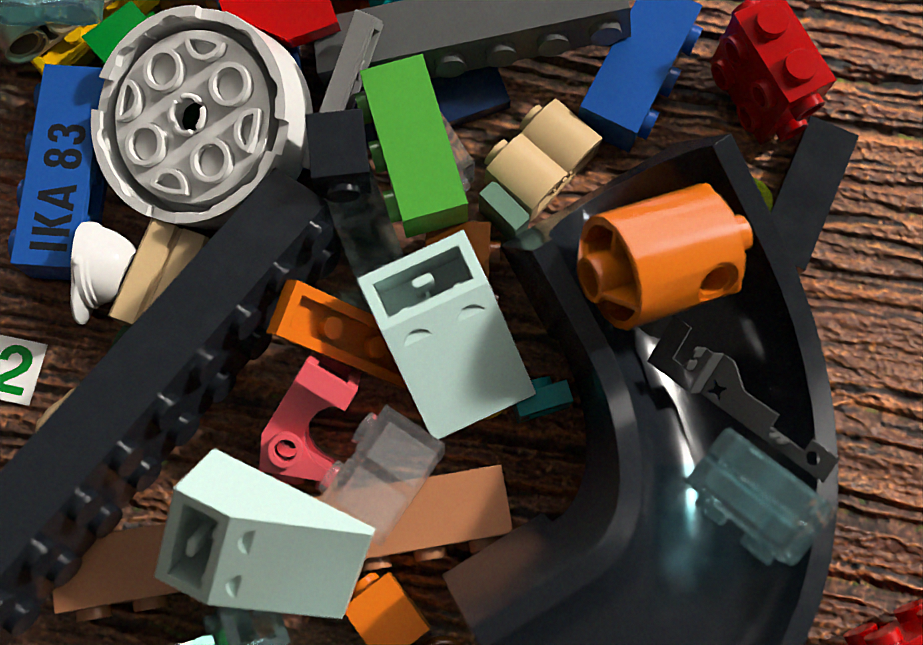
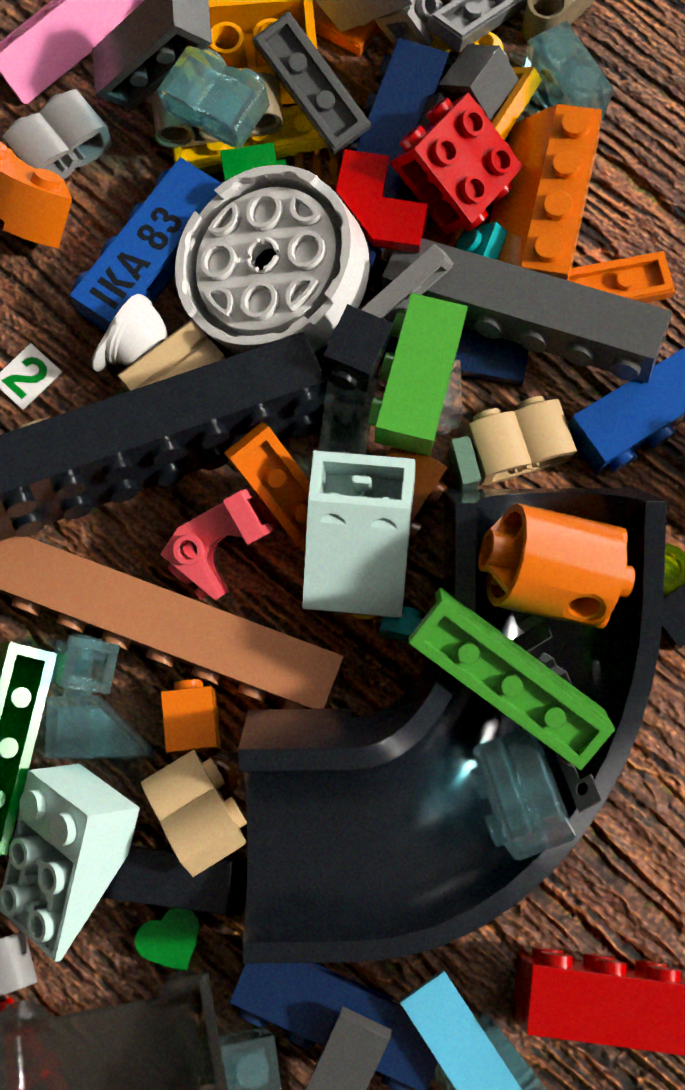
camera: 30 degrees right, 0 degrees up
(259, 543) = (128, 605): light aqua slope -> none
(383, 473) = (247, 610): clear piece -> none
(687, 392) = (512, 680): none -> bright green panel

